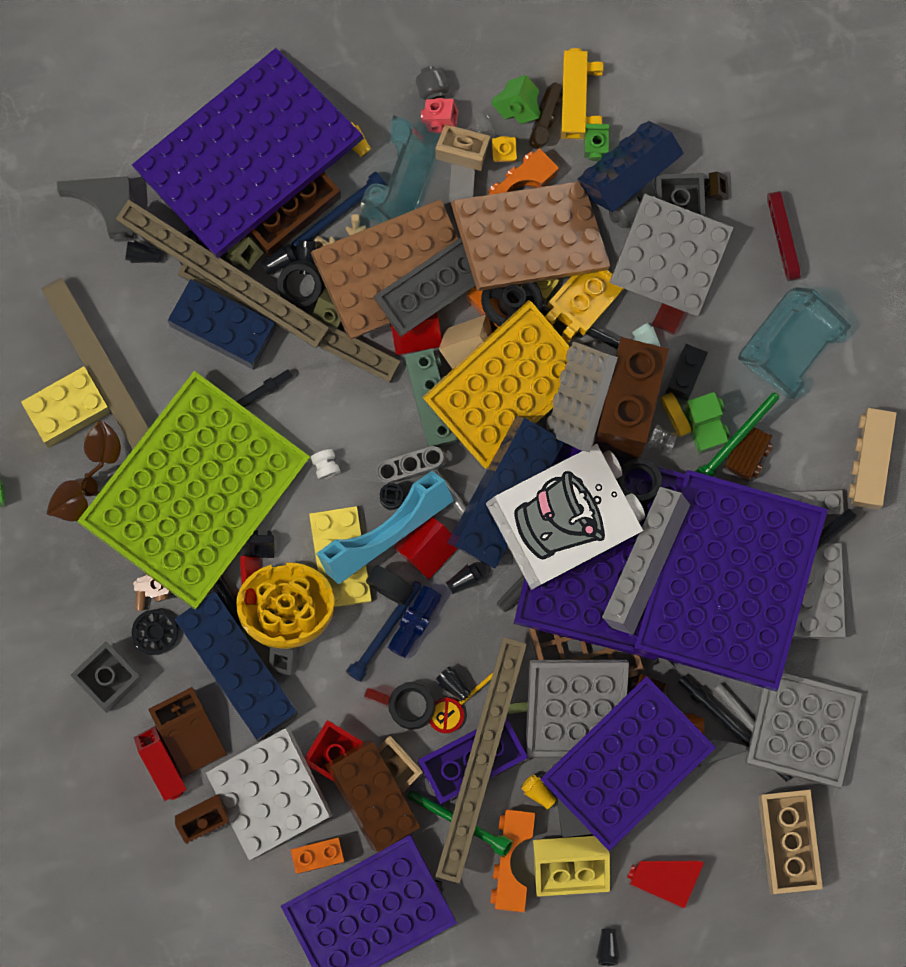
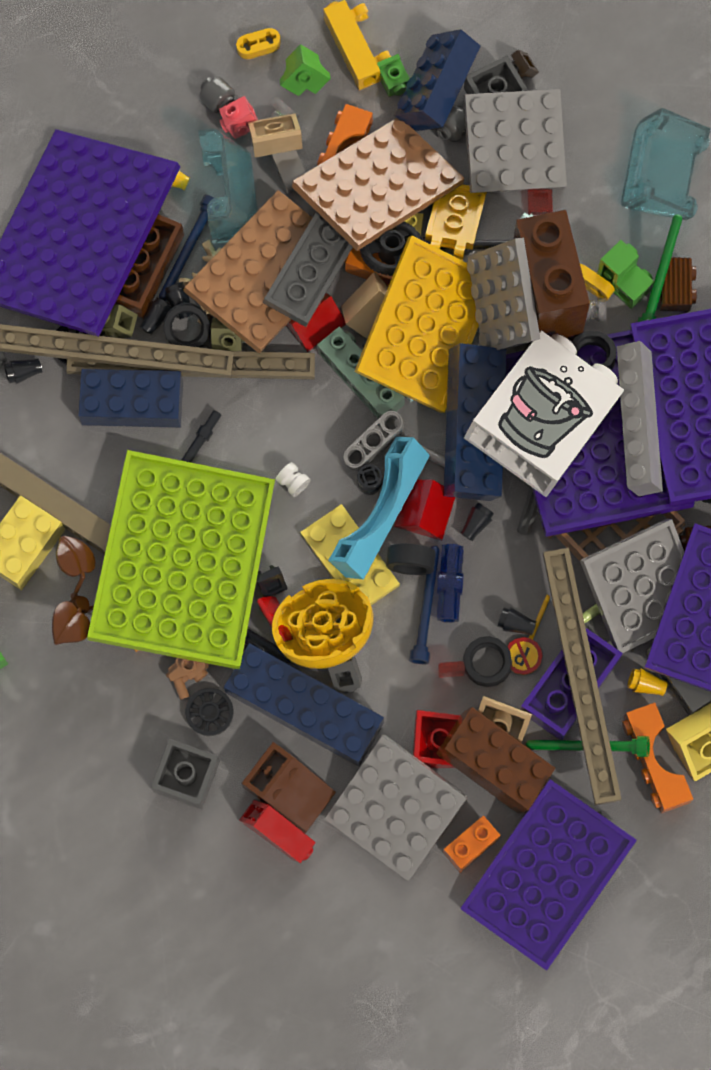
camera: 20 degrees left, 5 degrees down
(201, 819) = (344, 862): reddish brown brick -> none
(492, 59) = (258, 43): none -> yellow beam
(504, 149) = (313, 120): yellow bracket -> none
(539, 131) = (336, 89): dark brown hinge -> none
(686, 372) = (585, 237): black brick -> none
(783, 236) = (606, 80): dark red beam -> none

